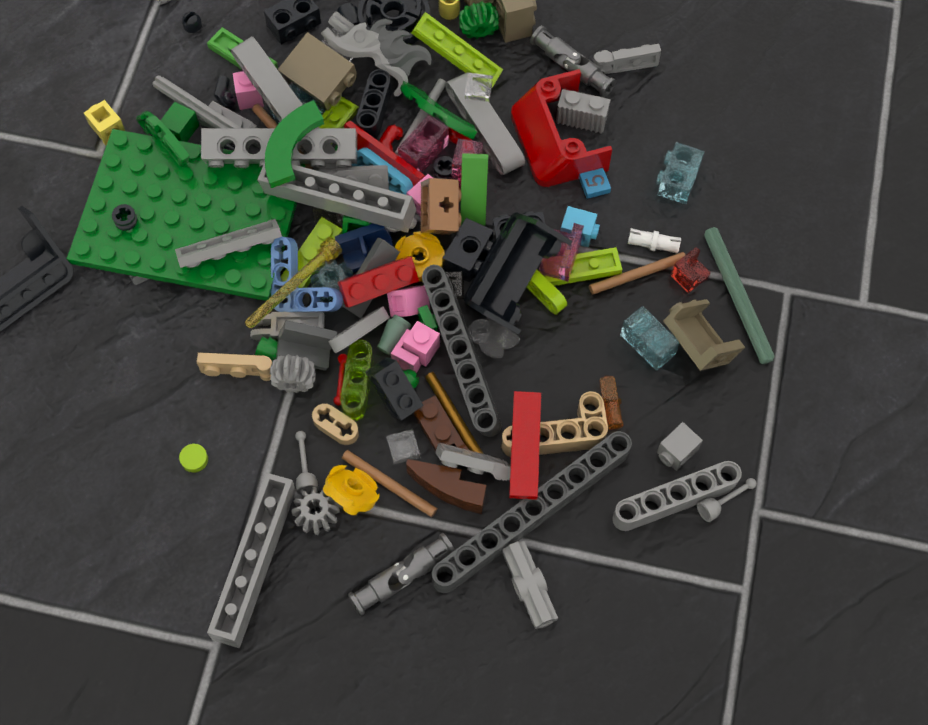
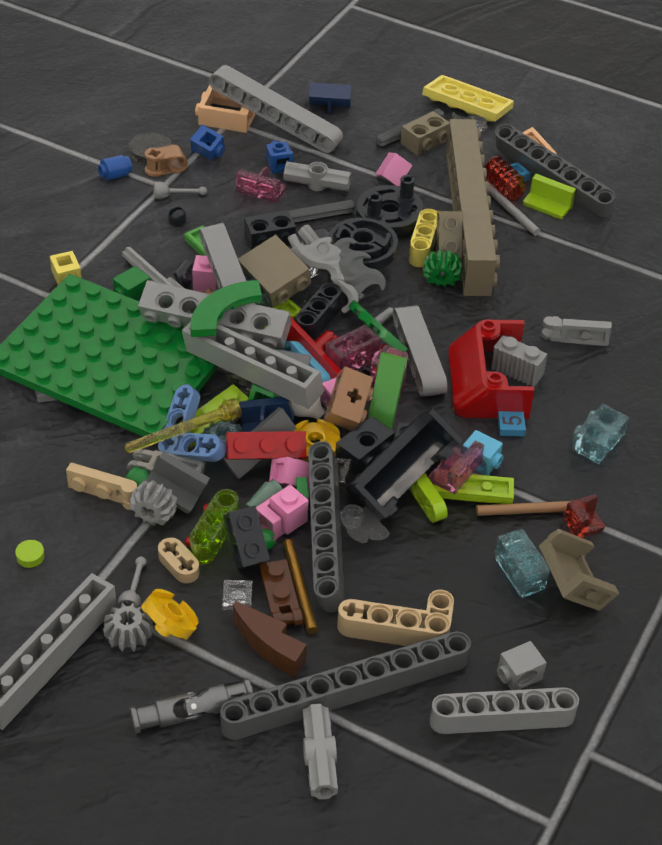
camera: 15 degrees right, 20 degrees down
(117, 217) = (51, 344): black bush -> none
(154, 127) = (110, 281): green tile -> none
(221, 245) = (123, 381): light grey plate -> none
(358, 329) = (231, 480): light grey beam -> none
(390, 484) = (216, 630): medium nougat bar -> none
(454, 48) = (412, 285): lime tile -> none
(475, 461) = (304, 623): light grey hinge -> none
(478, 87) = (421, 315): clear plate -> none
(525, 445) = (358, 618): red tile -> none
(570, 59) = (533, 330): flat silver piece -> none
(611, 402) = (463, 609): clear orange axle -> none
(654, 240) = (555, 484): white pin -> none
(711, 508) = (537, 733): light grey hinge -> none
(739, 296) = (629, 553): sand green axle -> none

